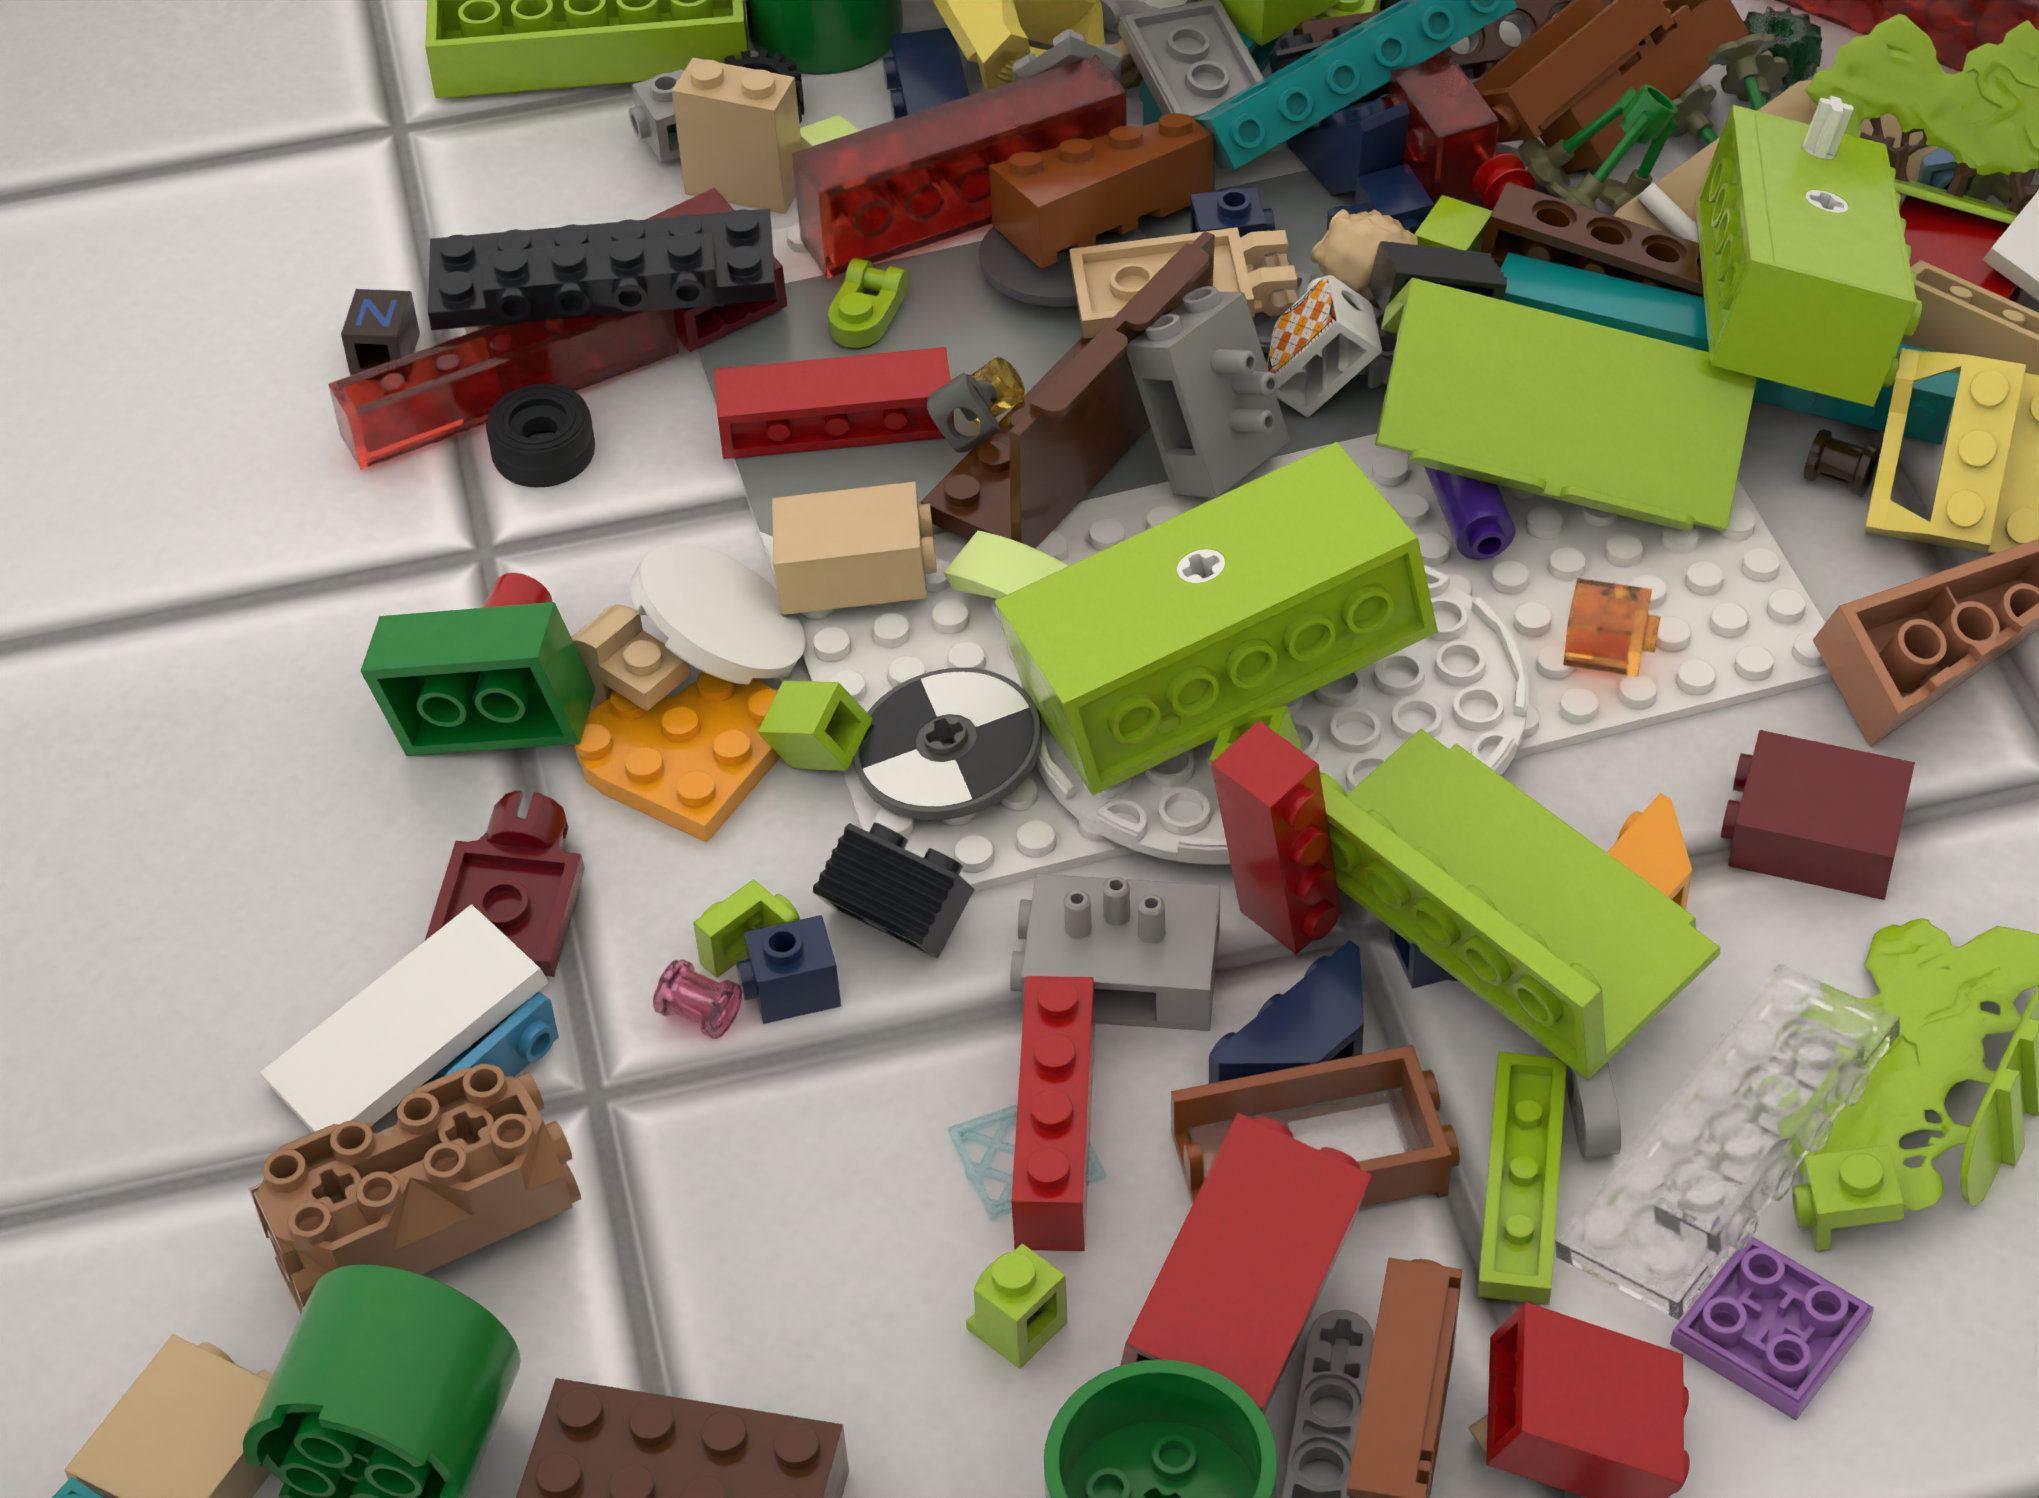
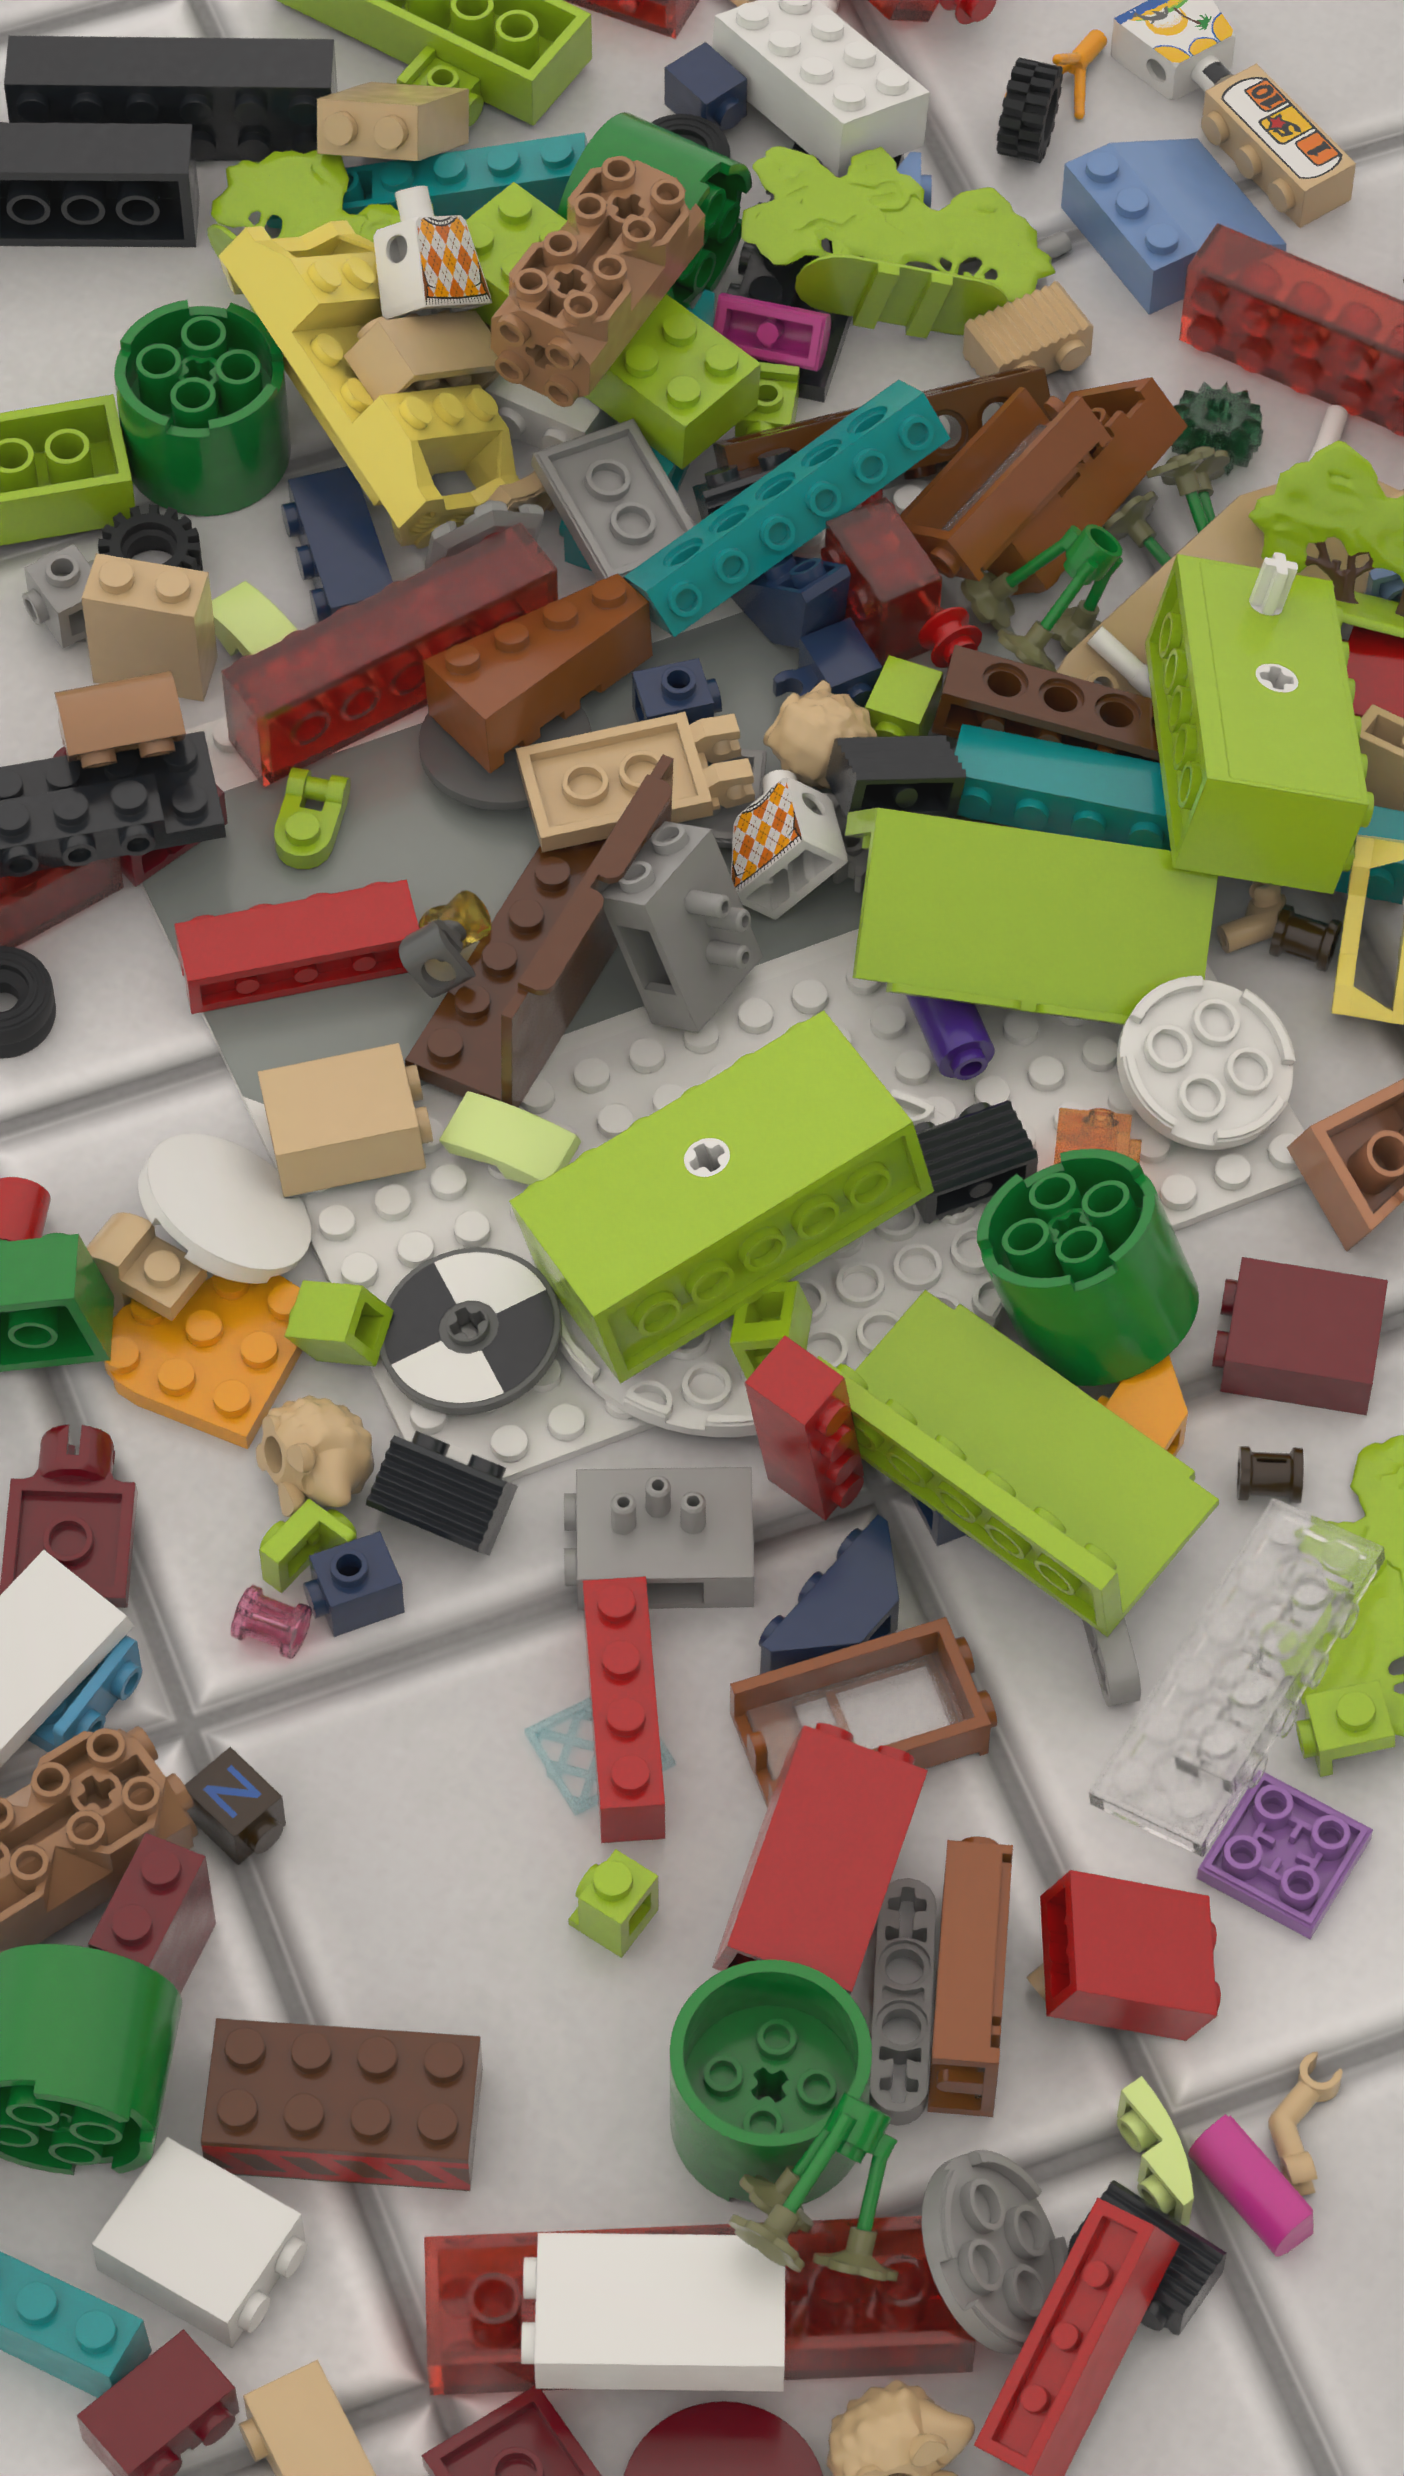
camera: 10 degrees left, 10 degrees up
(516, 1262) = (160, 1910): none -> dark red brick
(624, 1173) = (236, 1807): none -> dark brown brick
(686, 183) = (120, 718): none -> medium nougat brick
(770, 838) = (315, 1453): none -> tan animal
(1484, 620) = (973, 1158): none -> black brick
(1523, 1179) = (1055, 1732): lime plate -> none
(1597, 716) = (1089, 1267): none -> green brick
(1732, 556) = (1205, 1063): none -> white tile
(1777, 941) = (1270, 1474): none -> dark brown bush
(1794, 447) = (1258, 921): none -> tan arm

